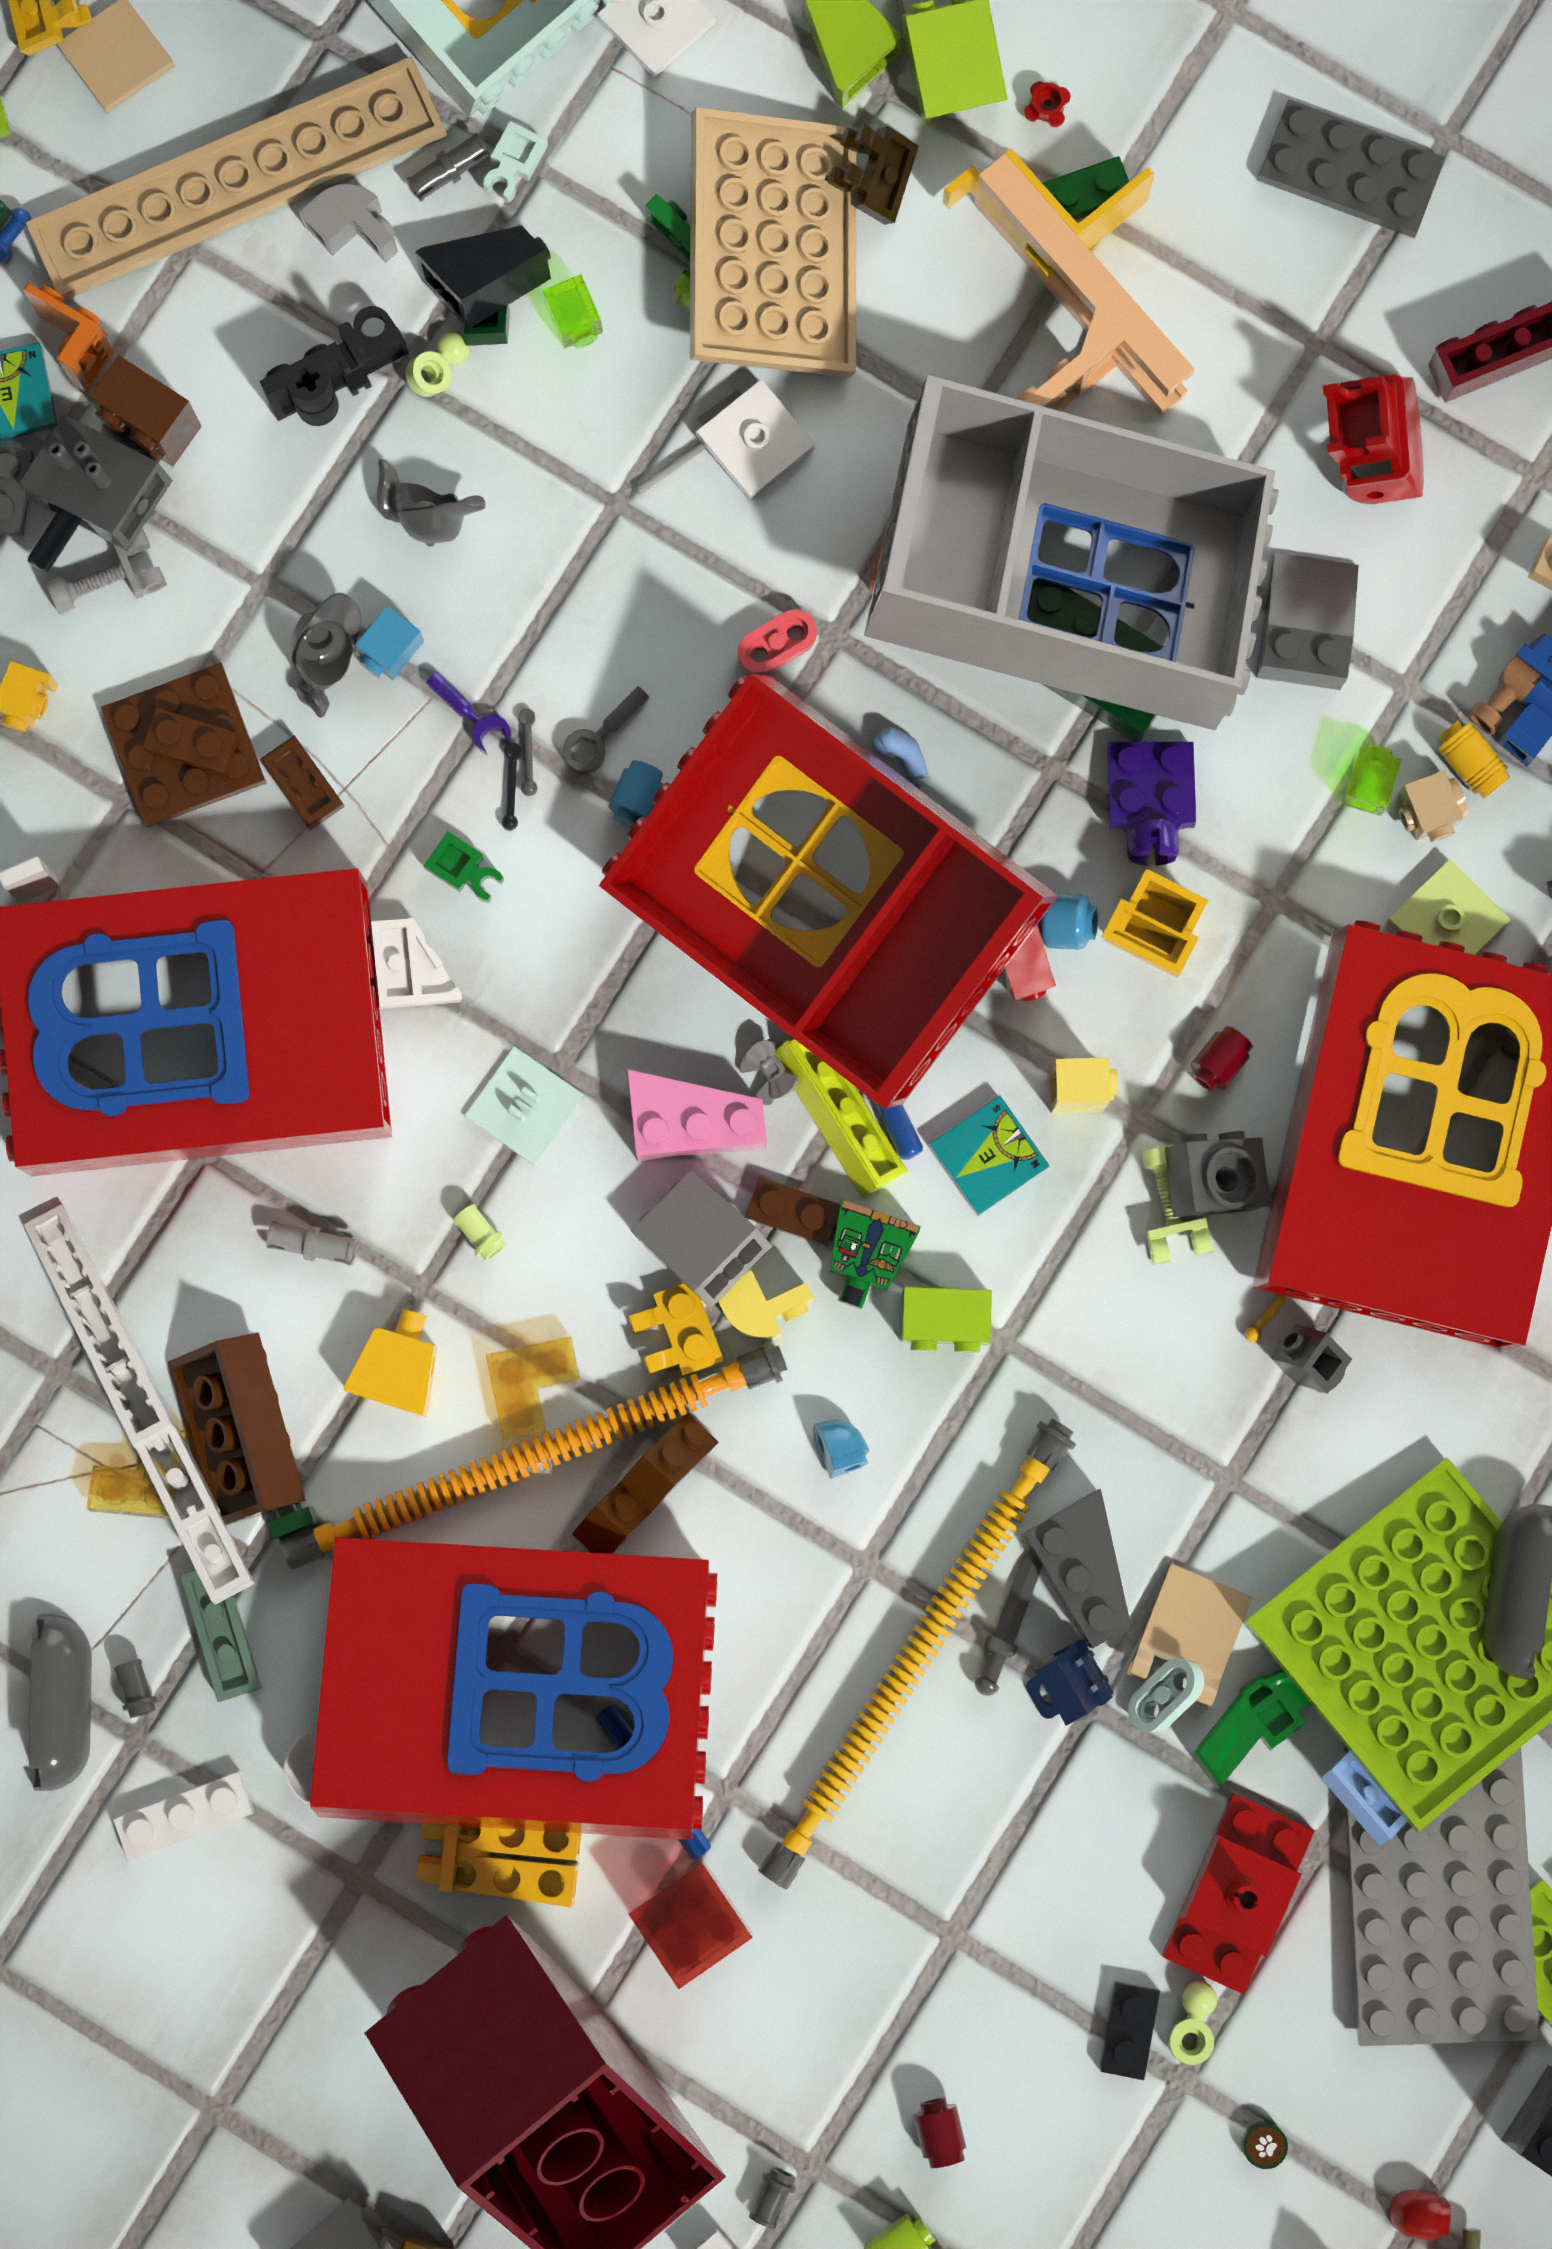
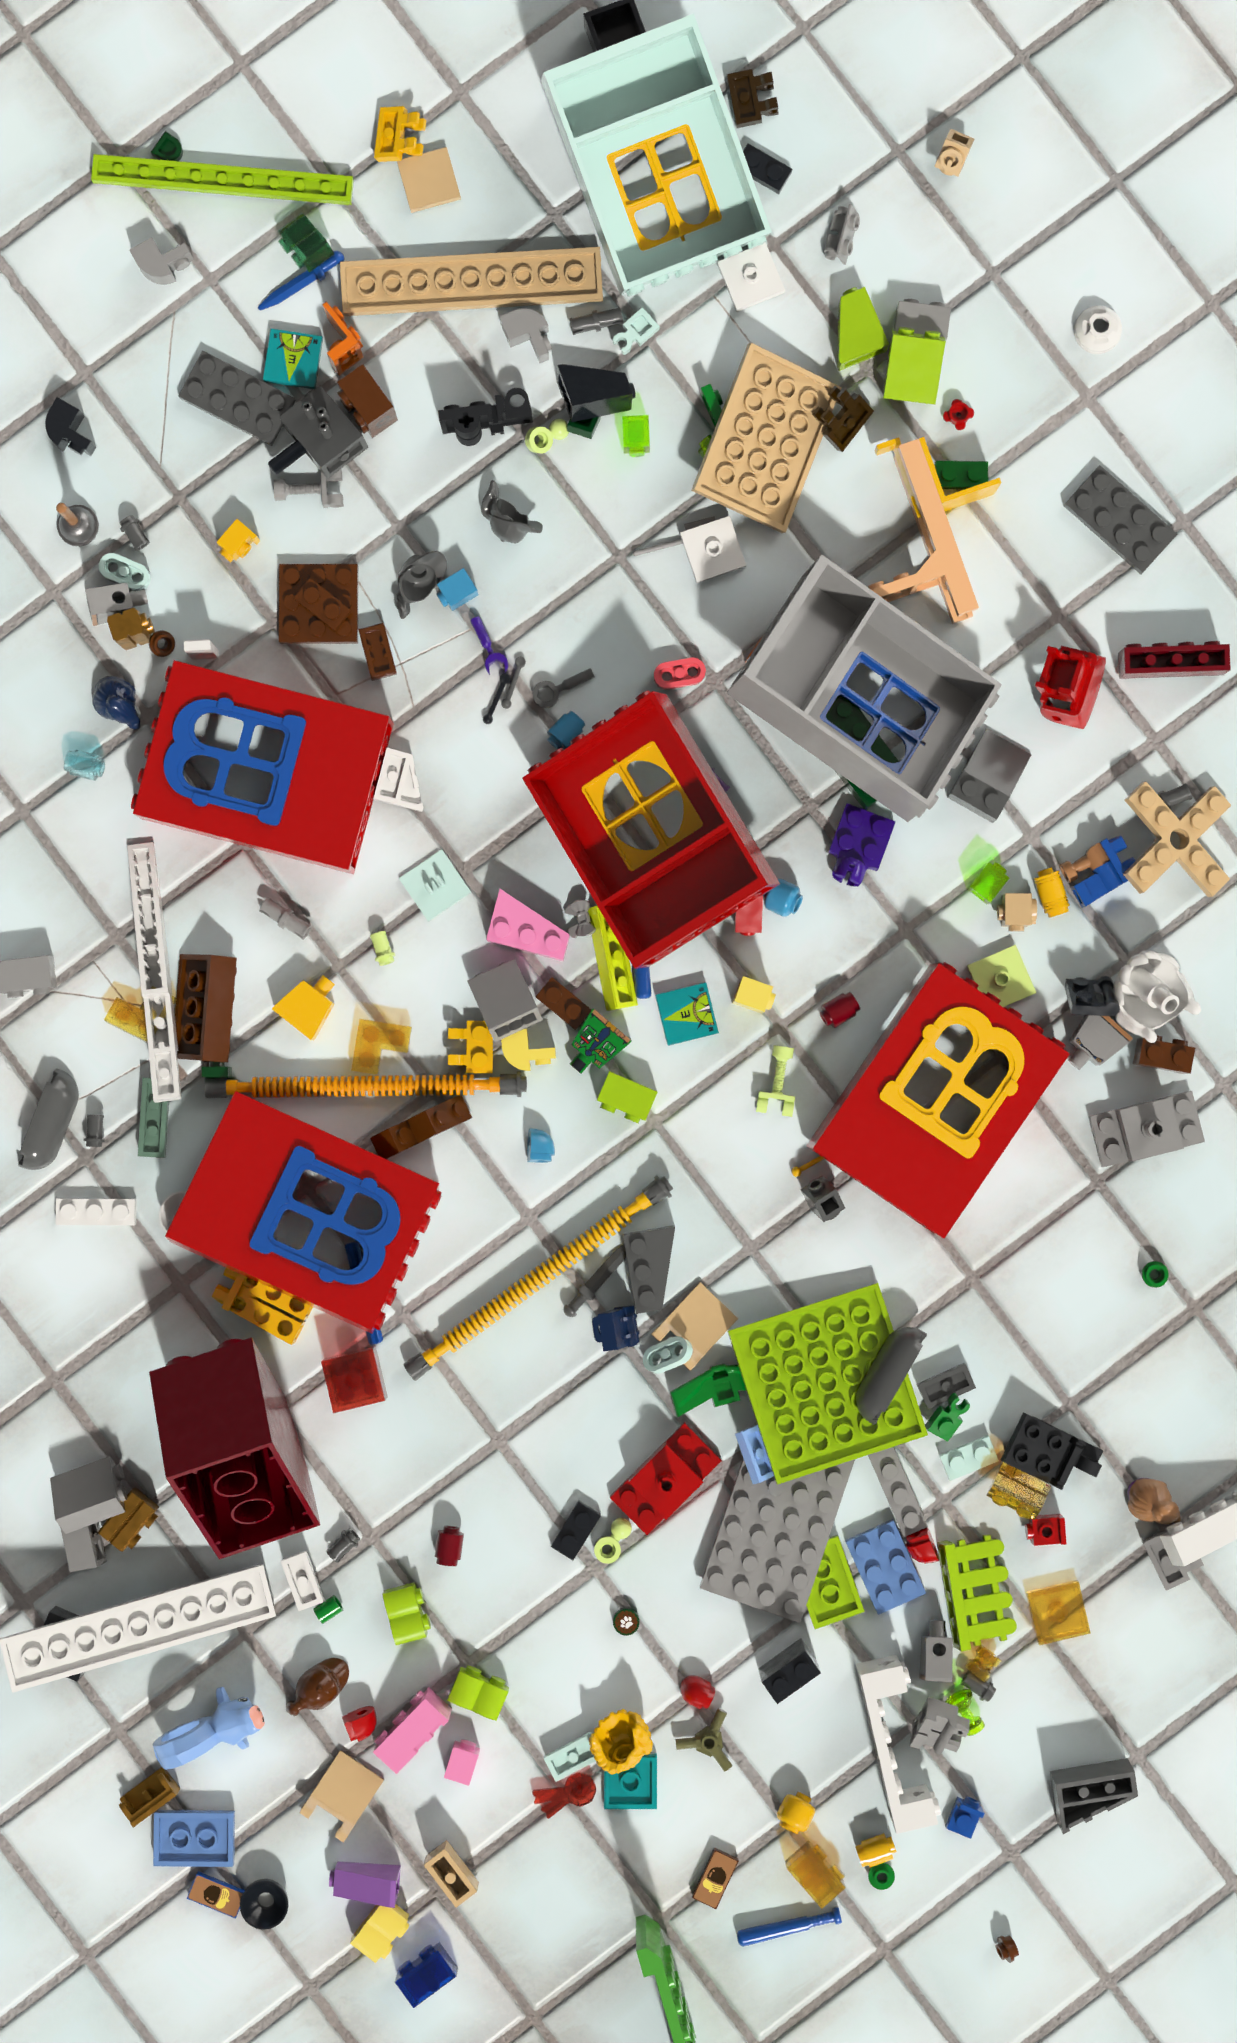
camera: 20 degrees right, 5 degrees up
(459, 864) = (449, 733): green plate -> none
(904, 746) = (729, 761): light blue arm -> none
(1157, 923) = (832, 919): yellow plate -> none
(1236, 1162) = (824, 1071): dark grey brick -> none

